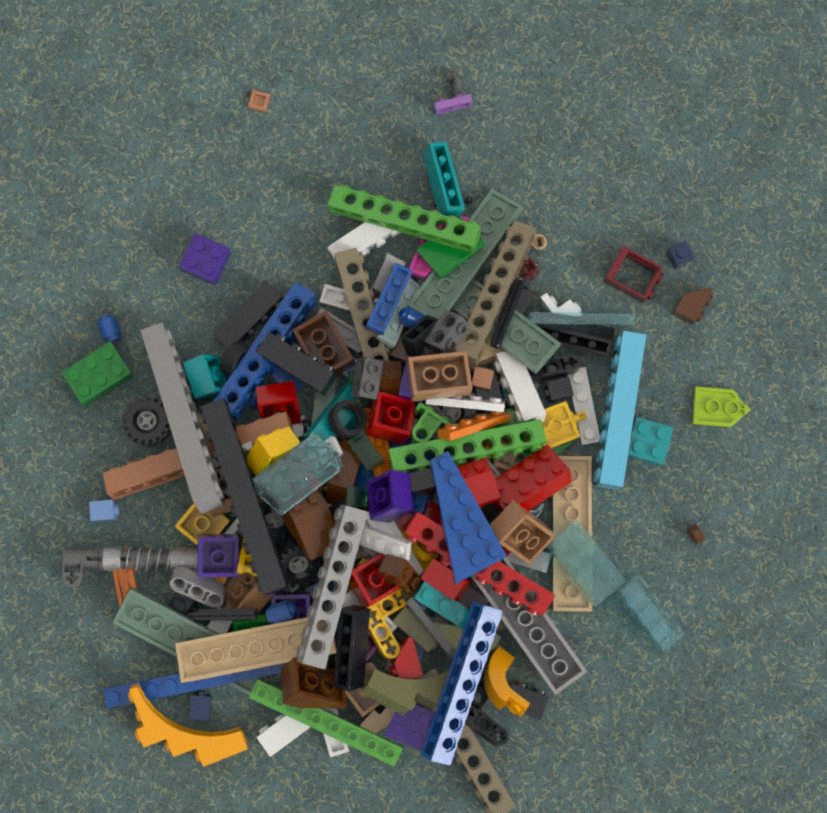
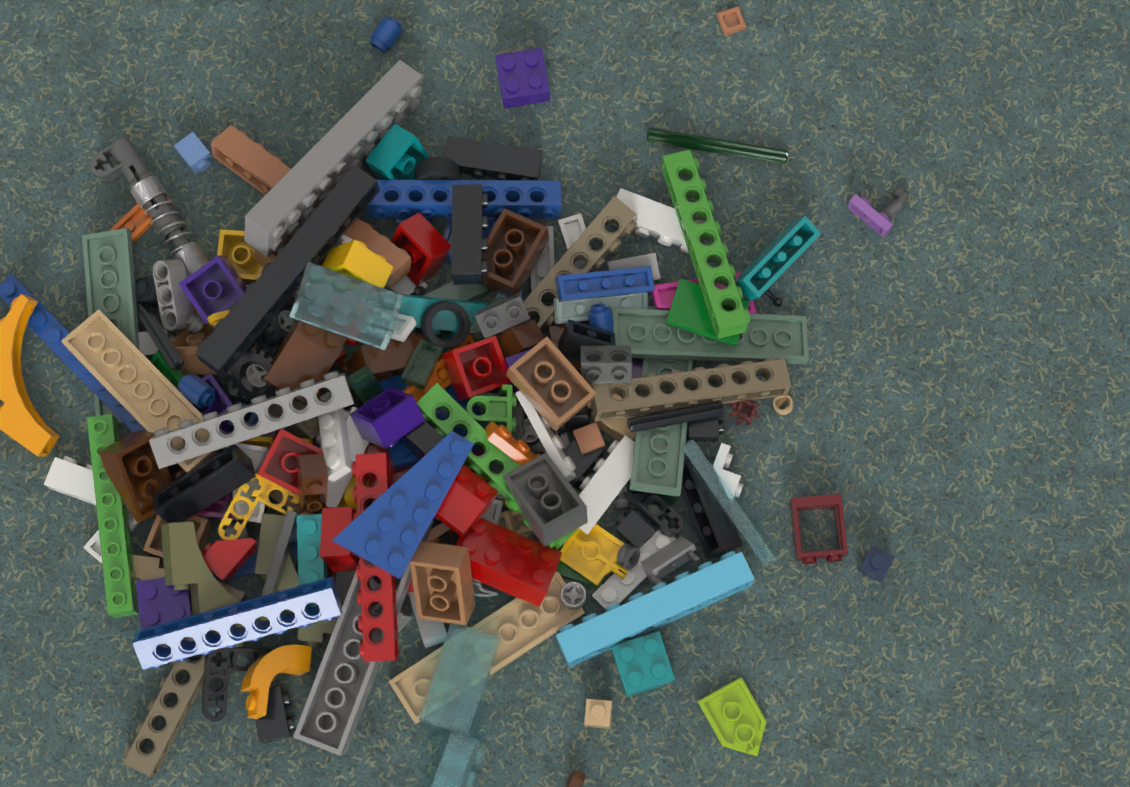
camera: 65 degrees right, 5 degrees down
(97, 374) = (330, 53): green brick -> none
(140, 414) = (307, 126): black wheel -> none
(200, 706) = (53, 381): dark blue brick -> none
(228, 584) = (195, 323): none -> dark grey plate
(338, 167) = (717, 146): none -> dark green axle
(512, 429) = (546, 499): none -> dark grey slope
(574, 404) = (628, 556): none -> dark grey bush
(580, 453) = (576, 593): none -> light grey wheel
(592, 380) = (668, 559): none -> light grey hinge
(661, 490) = (598, 713): none -> tan brick
(691, 305) = (830, 613): reddish brown slope -> none

